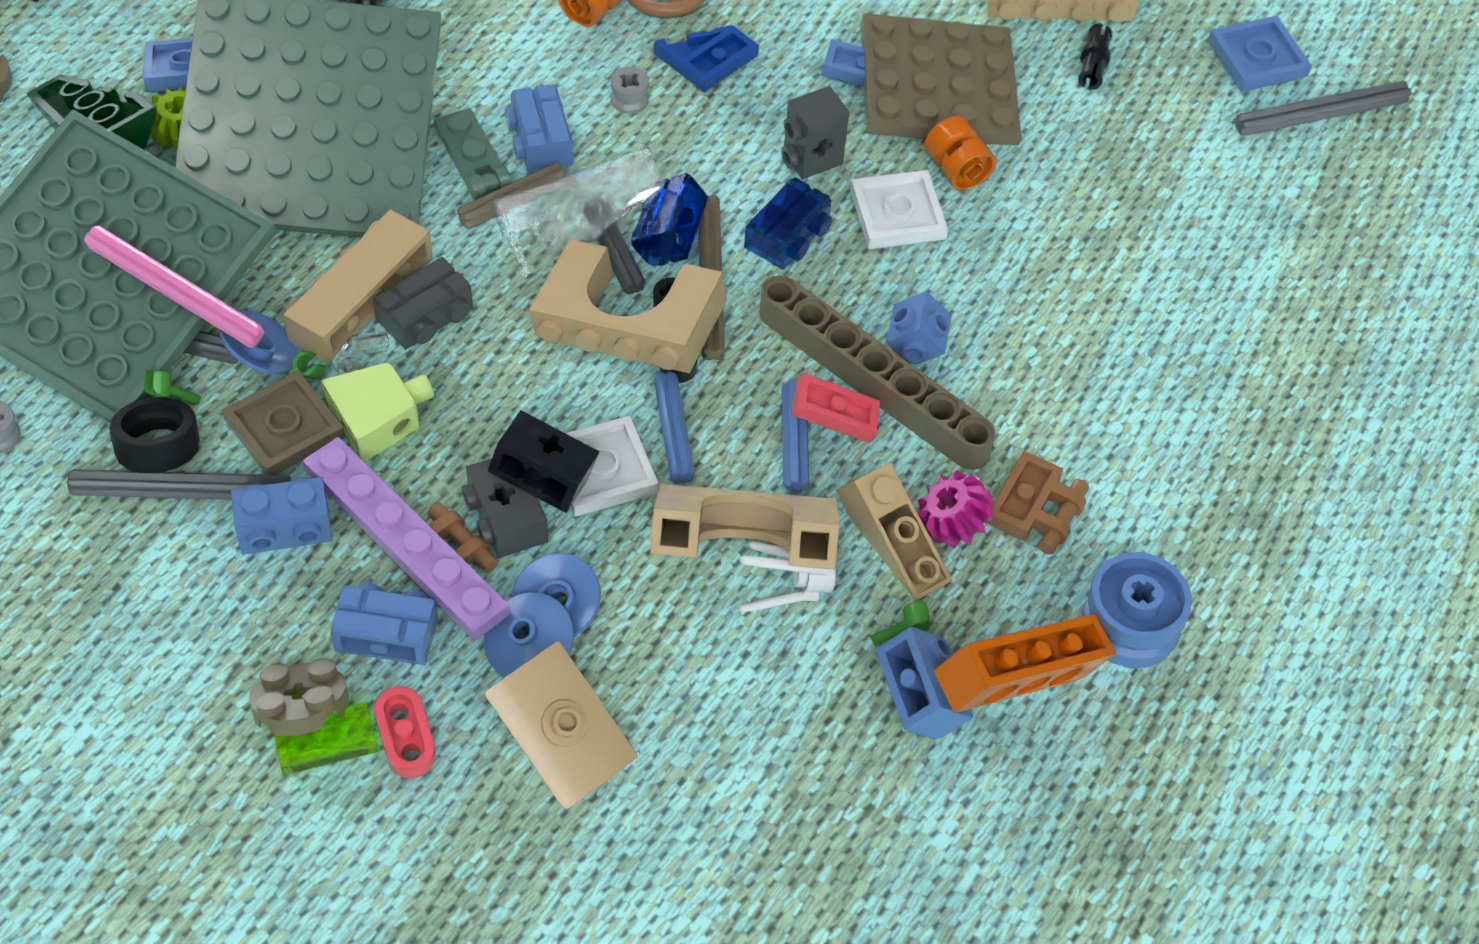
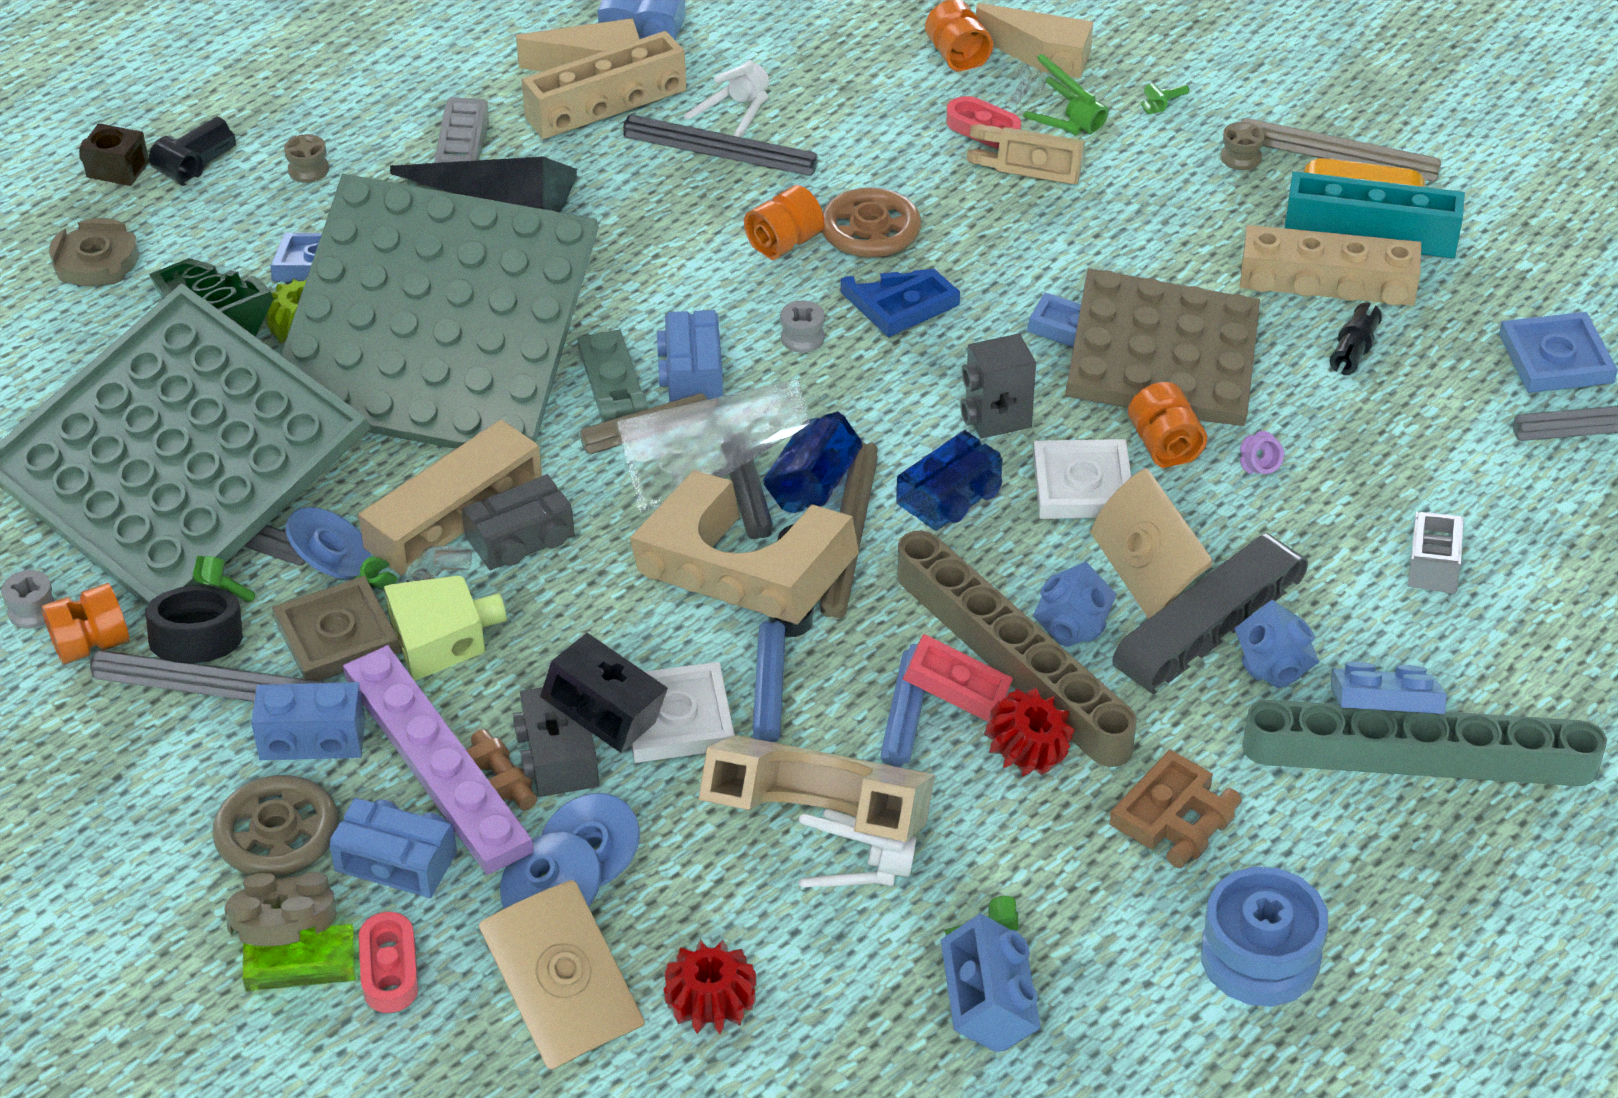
camera: 15 degrees right, 10 degrees down
(55, 445) = (85, 623): none -> orange wheel
(174, 286) = (247, 472): bright pink axle -> none
(286, 647) = (282, 859): none -> dark tan plate
(689, 731) = (710, 986): none -> red gear
(894, 530) = (997, 816): tan slope -> none
(908, 448) = (1029, 732): none -> red gear
(956, 509) = (1072, 801): dark pink gear -> none
(970, 266) = (1149, 543): none -> tan shield
(1023, 662) = (1107, 969): orange brick -> none
(1027, 320) = (1208, 611): none -> dark grey beam
(1047, 174) = (1271, 456): none -> lavender plate
(1092, 346) = (1276, 645): none -> medium blue brick
(1189, 377) = (1403, 690): none -> medium blue plate
(1198, 256) = (1432, 565): none -> light grey slope
(1224, 419) = (1424, 743): none -> sand green beam

